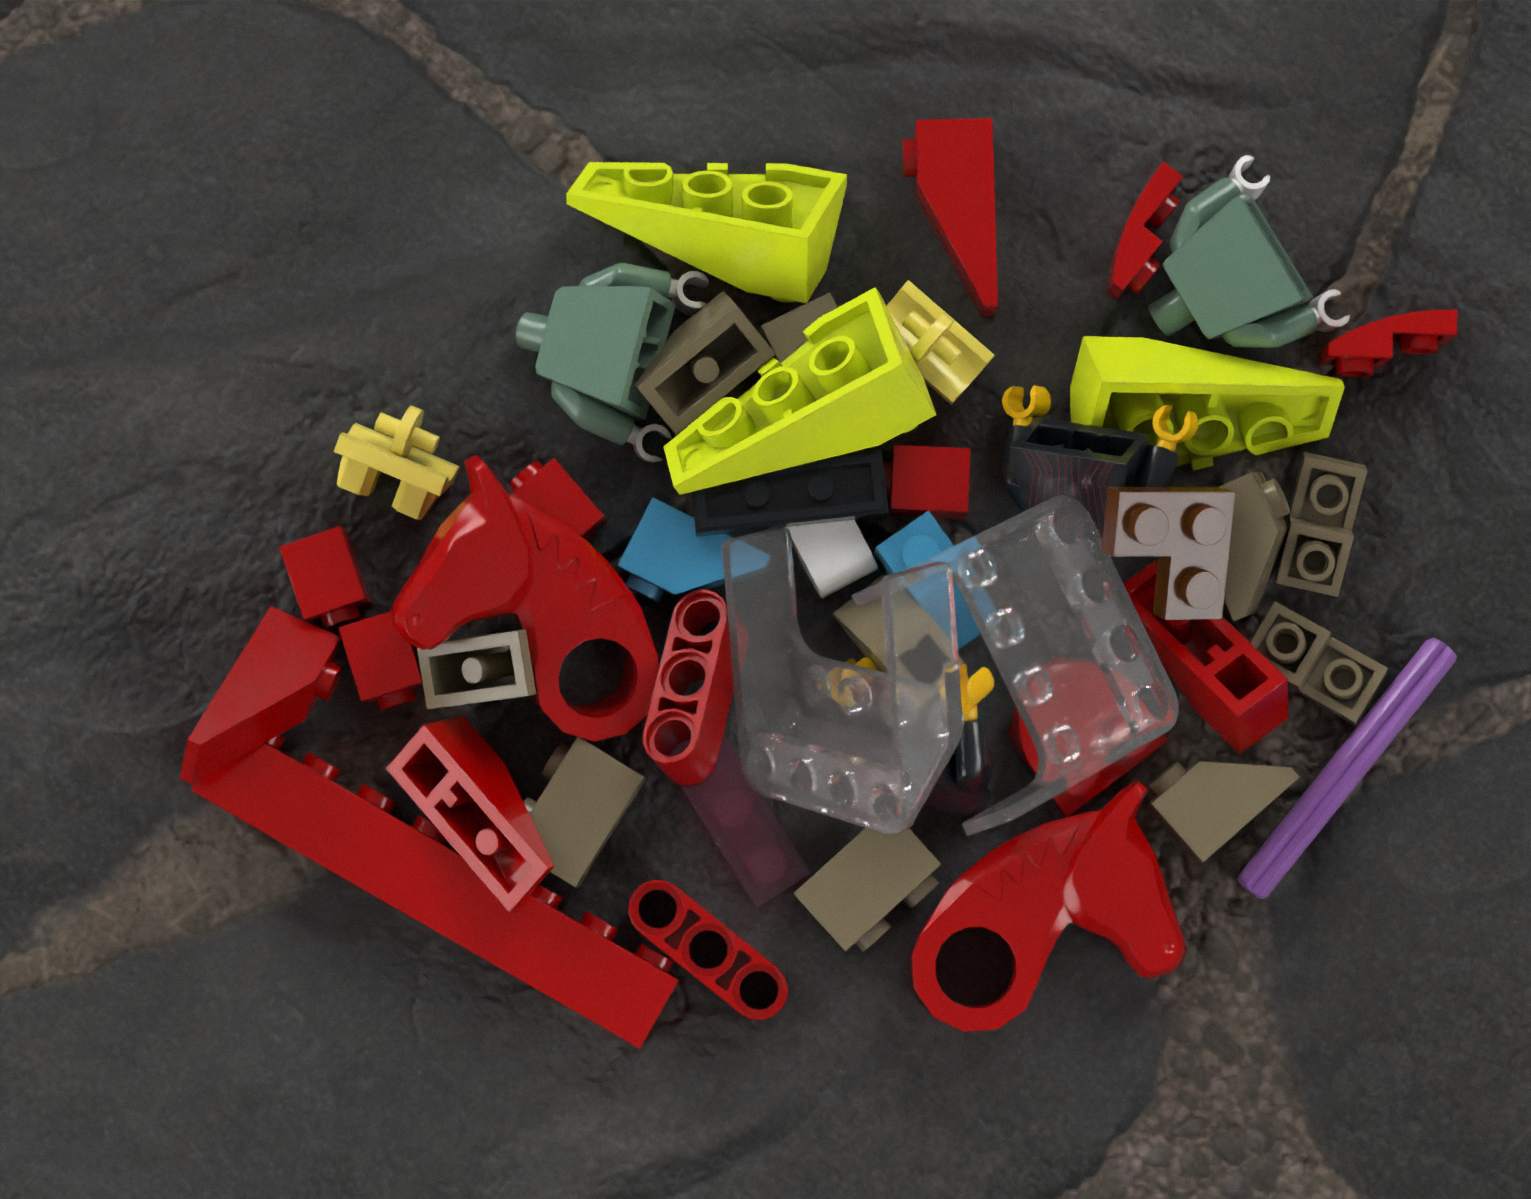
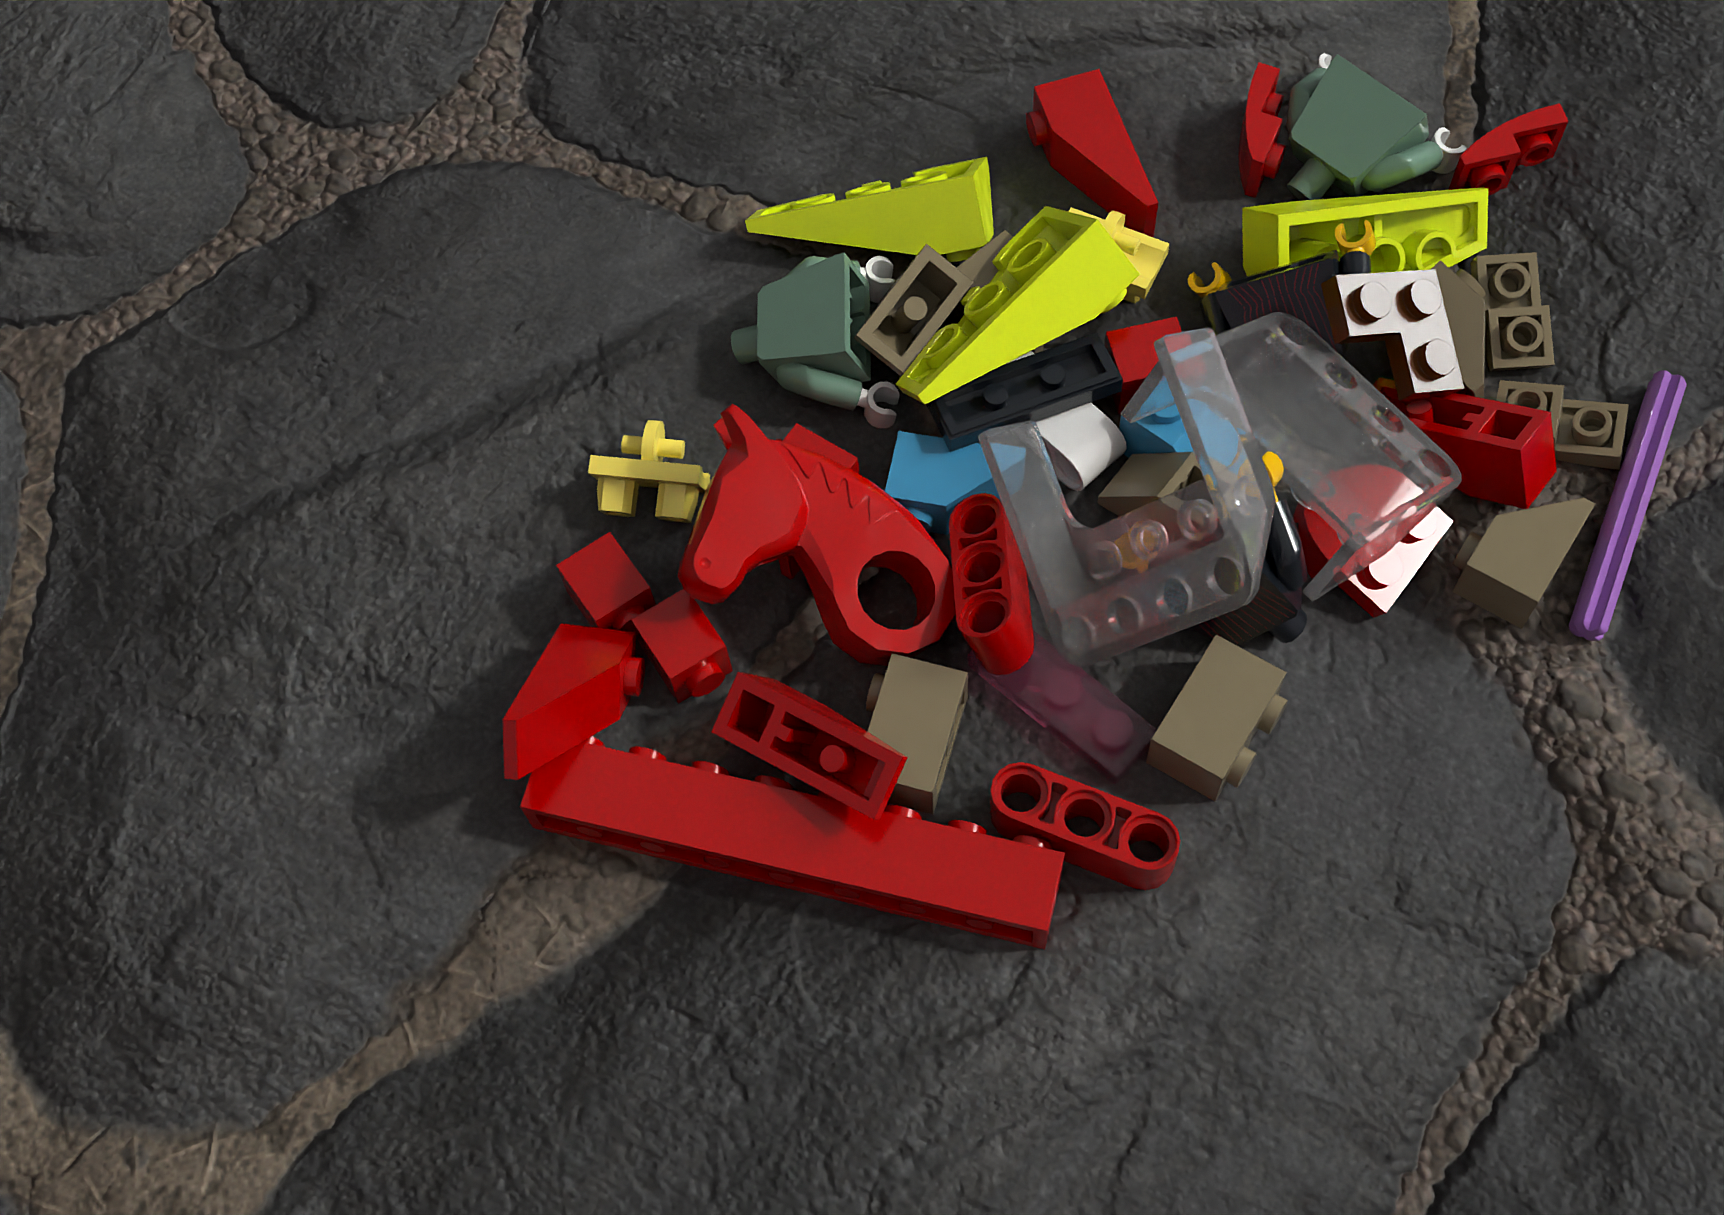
camera: 10 degrees left, 20 degrees down
(477, 669) = (780, 614): dark tan slope -> none
(1069, 870) = (1375, 692): red animal -> none

